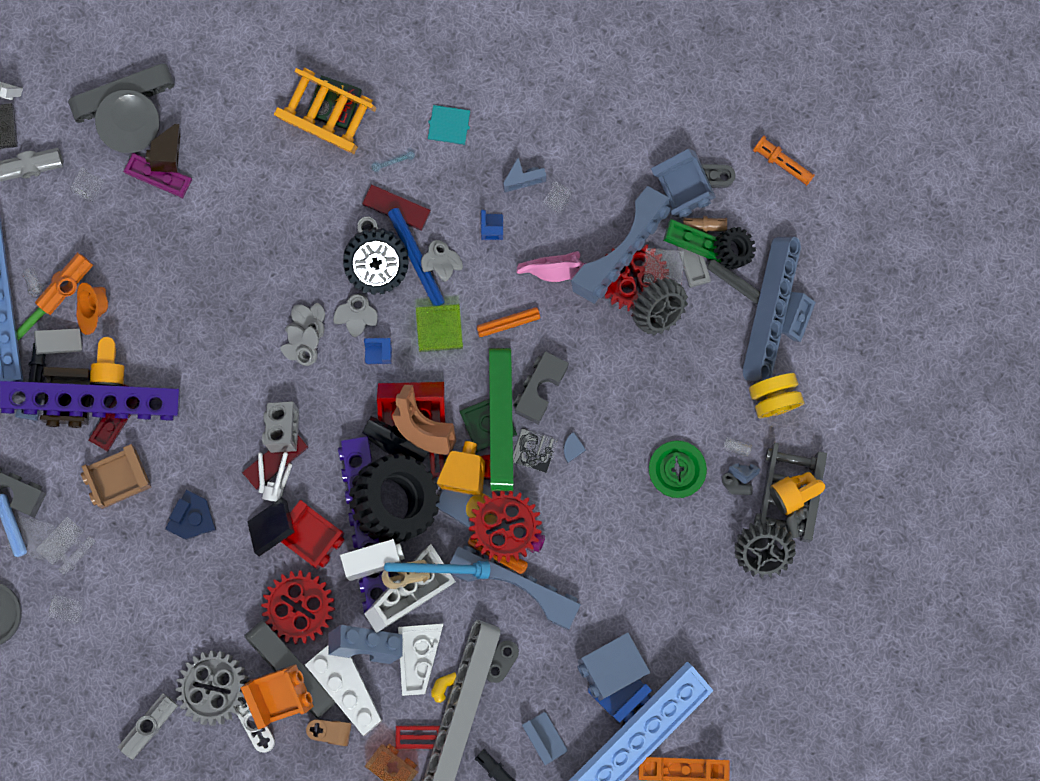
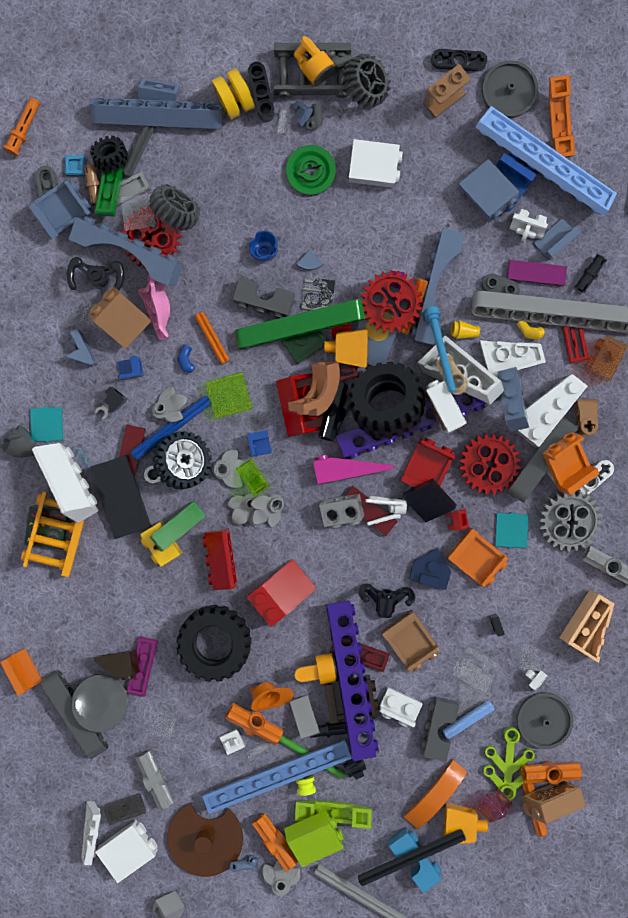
camera: 100 degrees left, 10 degrees up
(38, 613) = (537, 679): none -> white tile
(42, 450) = (400, 707): none -> white bracket
(50, 257) = (232, 741): none -> white tile
(84, 683) = (589, 625): none -> light nougat wedge
(110, 578) = (496, 625): none -> black tile
(145, 237) = (206, 667): none -> black tyre
(170, 458) = (386, 599): none -> black piece
(182, 45) = (21, 671): none -> orange panel
(193, 572) = (477, 558): none -> orange panel
(204, 342) = (281, 592): none -> slope
(216, 619) = (511, 530): none -> teal piece
(241, 559) = (459, 518): none -> red tile
(256, 282) = (220, 559): none -> red slope
(277, 224) = (157, 556): none -> yellow brick
(303, 242) = (177, 526): none -> green tile
(330, 432) = (336, 469): none -> dark pink slope
(339, 336) = (253, 477): none -> clear neon green slope
(350, 188) = (120, 497): none -> black tile
(378, 130) = (65, 481): none -> white slope
(431, 92) = (19, 443): none -> dark grey hat
(458, 200) = (113, 400): none -> black piece
(459, 607) = (464, 330): none -> yellow cone
(489, 286) = (183, 359): none -> blue arm
(509, 707) = (537, 273): none -> magenta tile
(548, 223) = (119, 317): none -> medium nougat brick
(562, 705) = (527, 226): none -> white hips
(598, 392) = (262, 240): none -> blue hair
(602, 207) = (95, 274): none -> black piece
(670, 542) = (375, 163): none -> white brick
(730, 718) = (510, 88): none -> dark grey piece
(731, 209) = (74, 165): none -> dark azure tile
(735, 638) = (446, 91): none -> medium nougat panel
(783, 649) = (463, 53): none -> black beam
(784, 424) = (258, 83): none -> black beam

